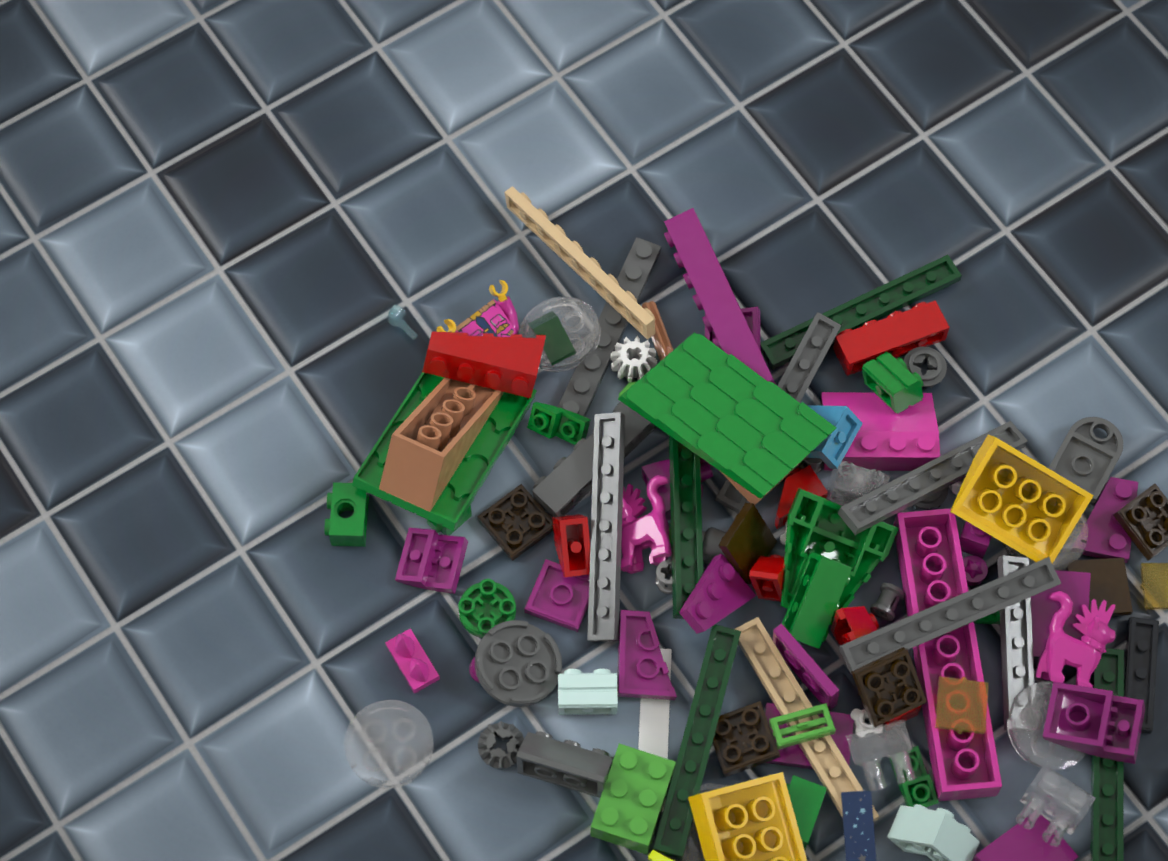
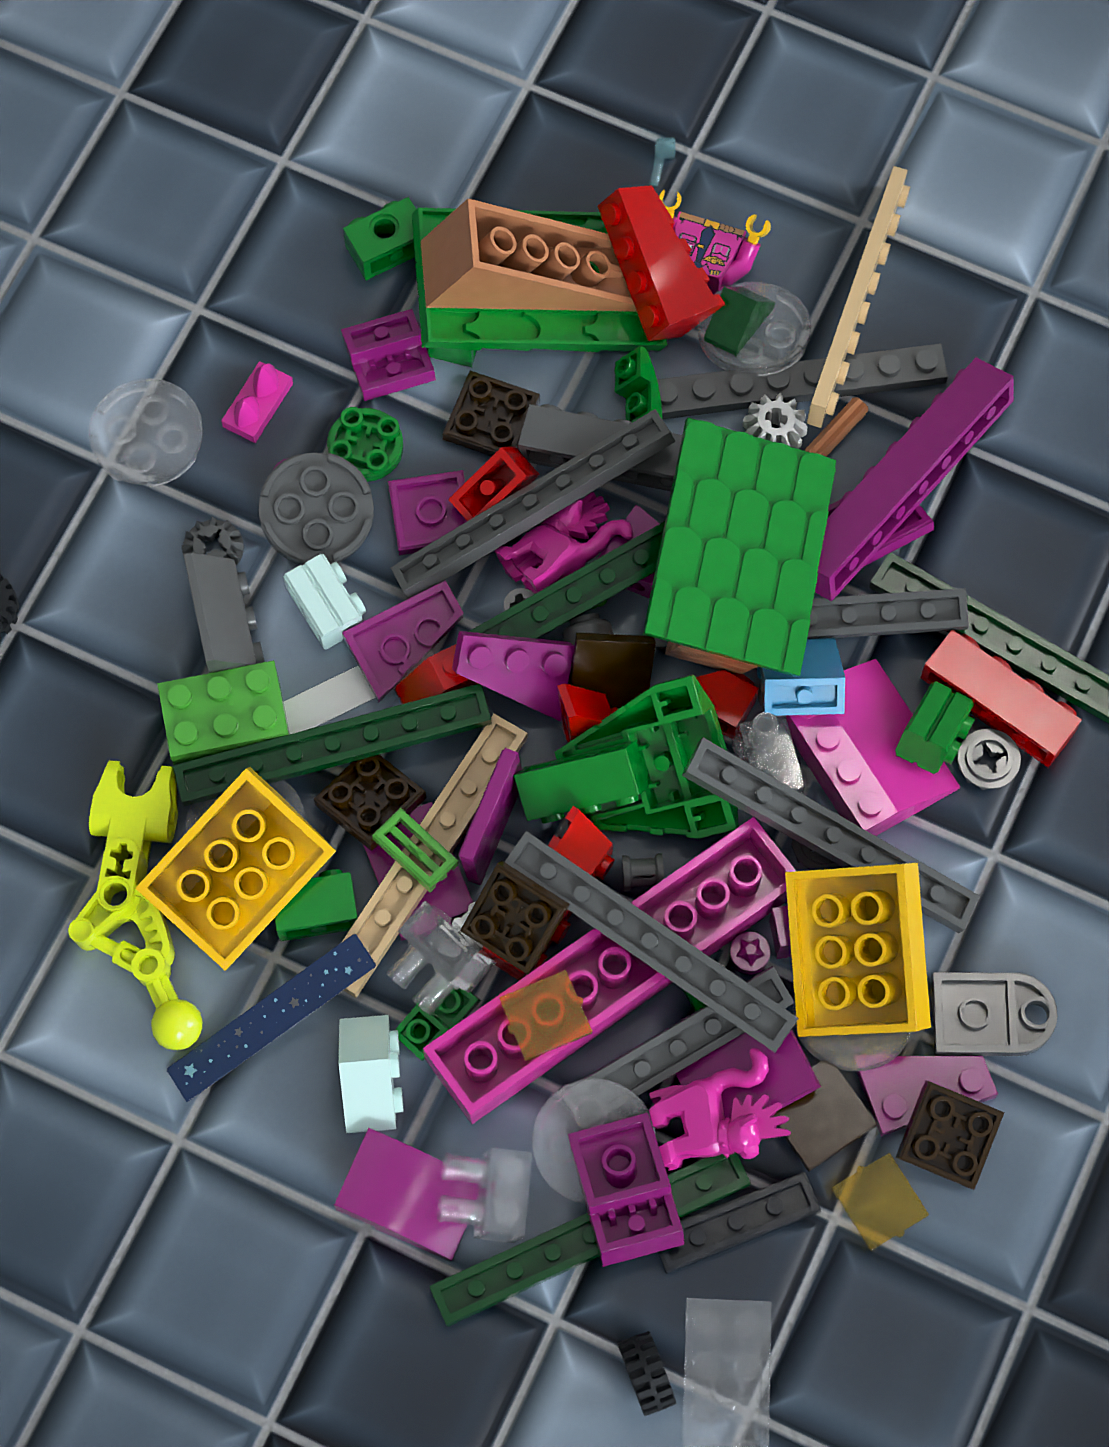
camera: 60 degrees right, 5 degrees up
(686, 655) = (432, 678): none -> red slope

